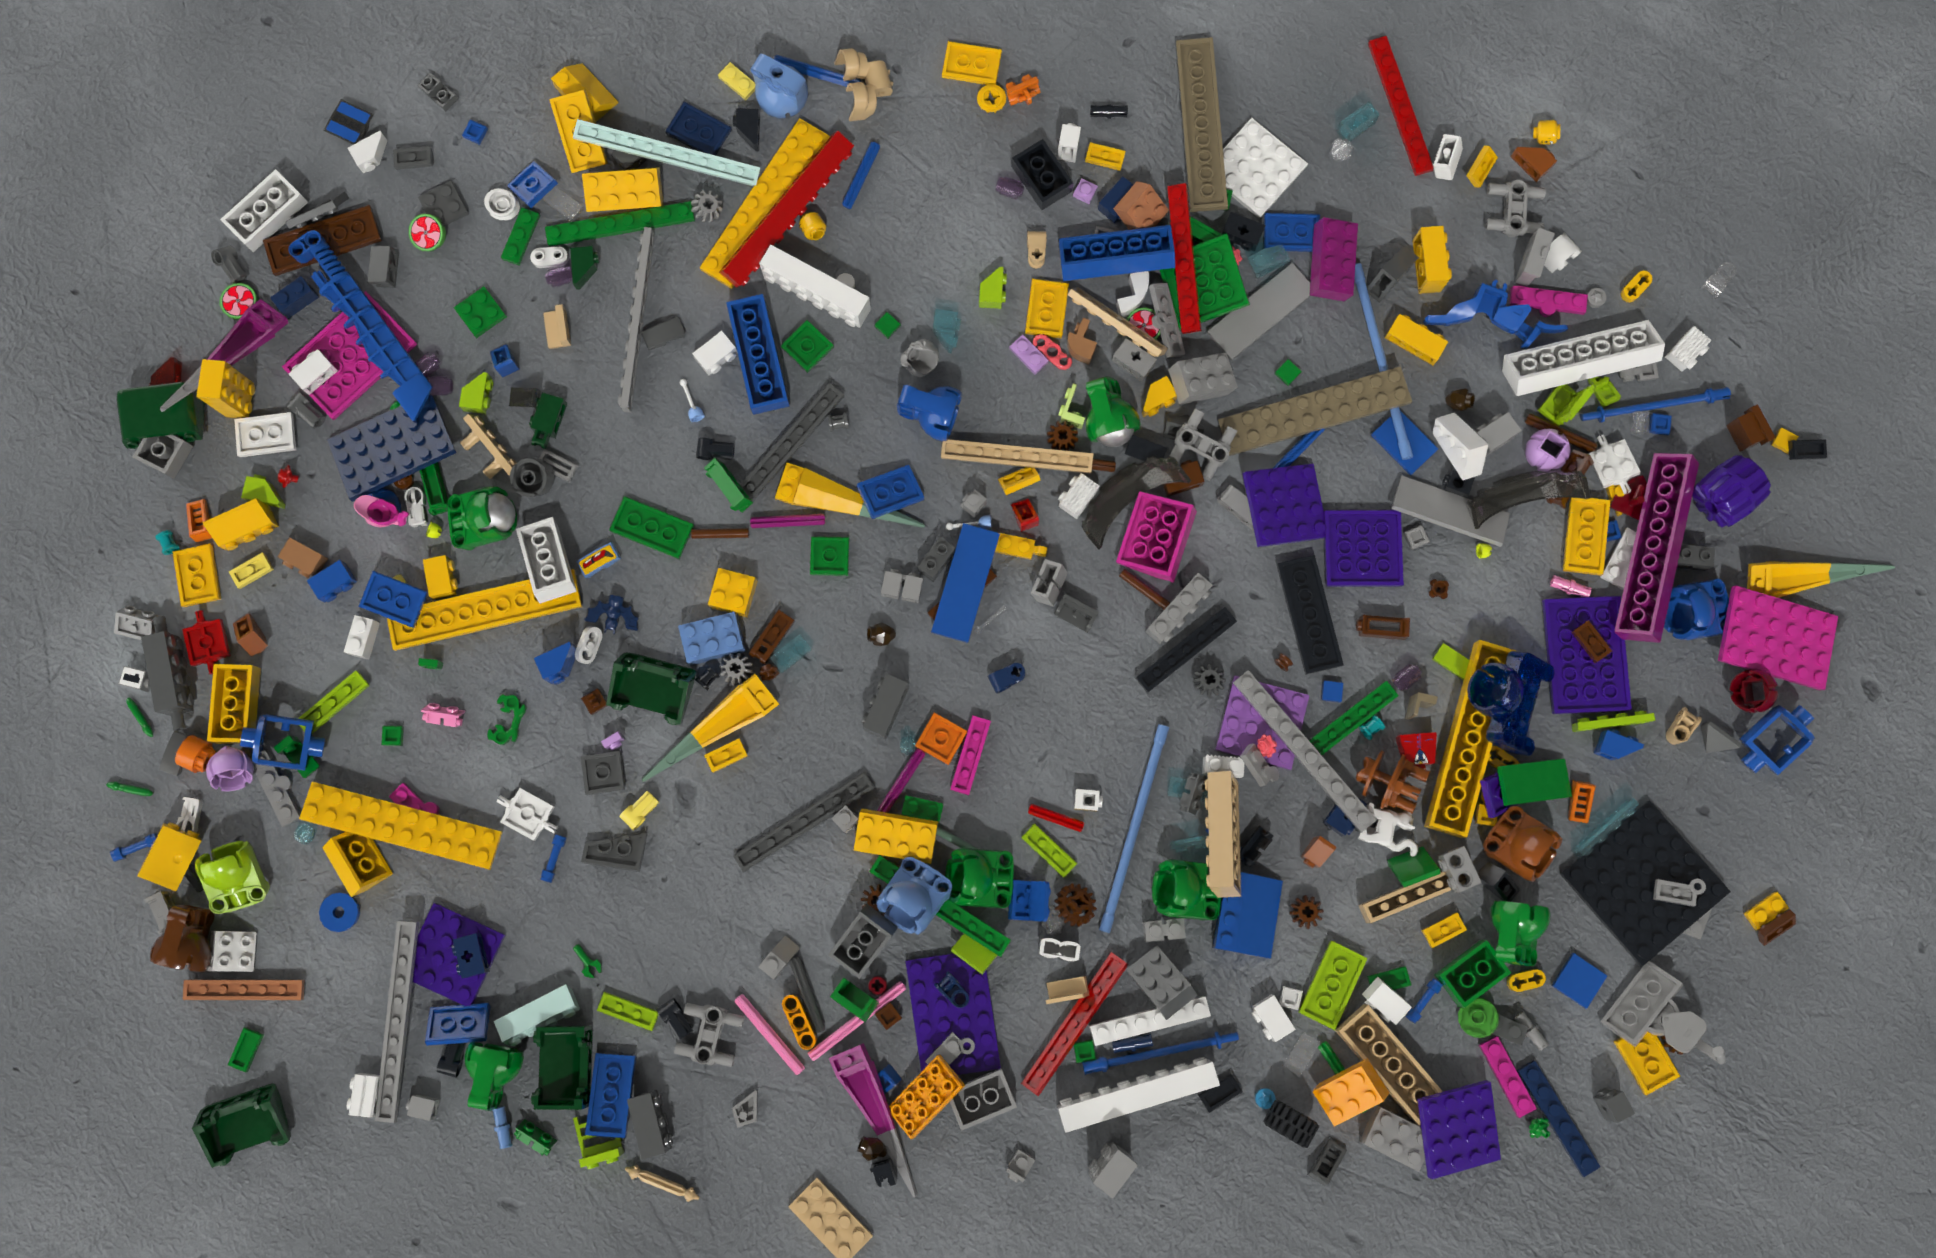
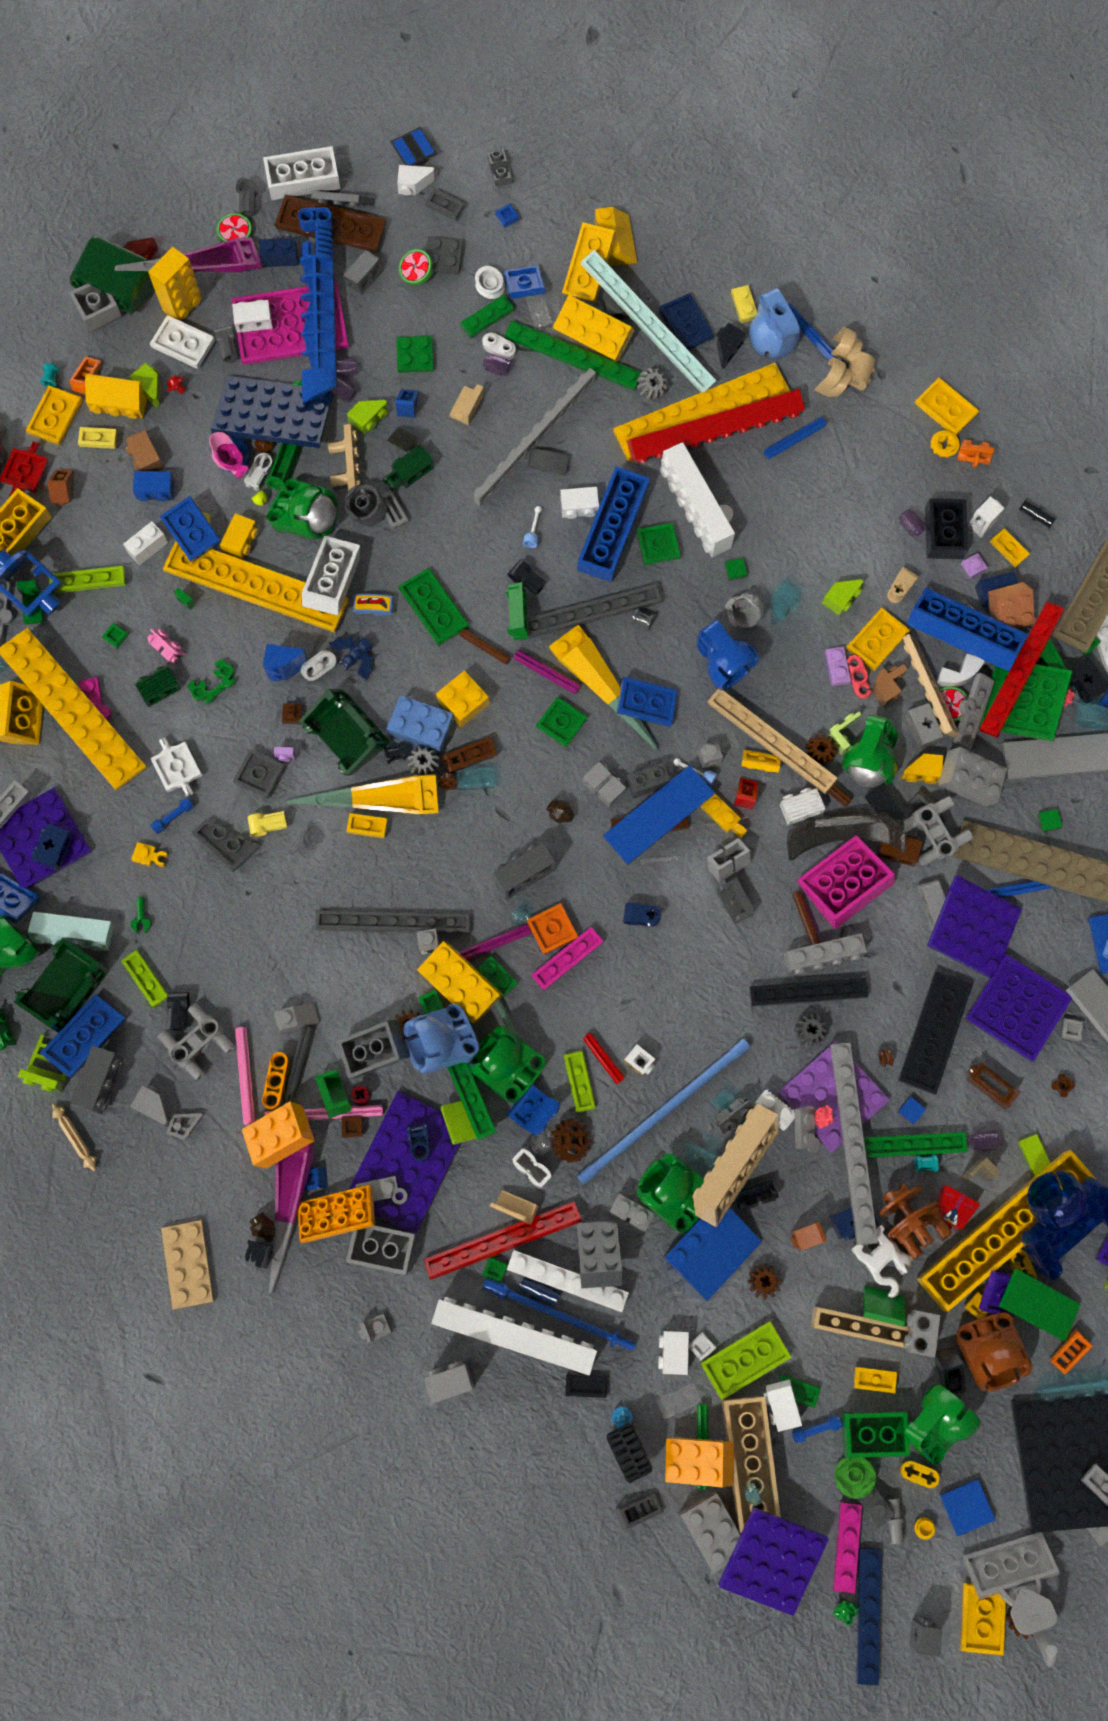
camera: 30 degrees right, 5 degrees down
(461, 755) = (157, 685): none -> dark green brick
(555, 906) = (147, 854): none -> yellow plate
(583, 264) = (521, 368): dark green slope -> none
(709, 1112) = (151, 1104): none -> light grey slope
(812, 226) = (727, 452): yellow head -> none
(833, 1066) = (278, 1135): none -> light orange brick
(1409, 1089) = (752, 1494): none -> clear light blue tile
(1557, 1020) = (924, 1528): none -> yellow plate

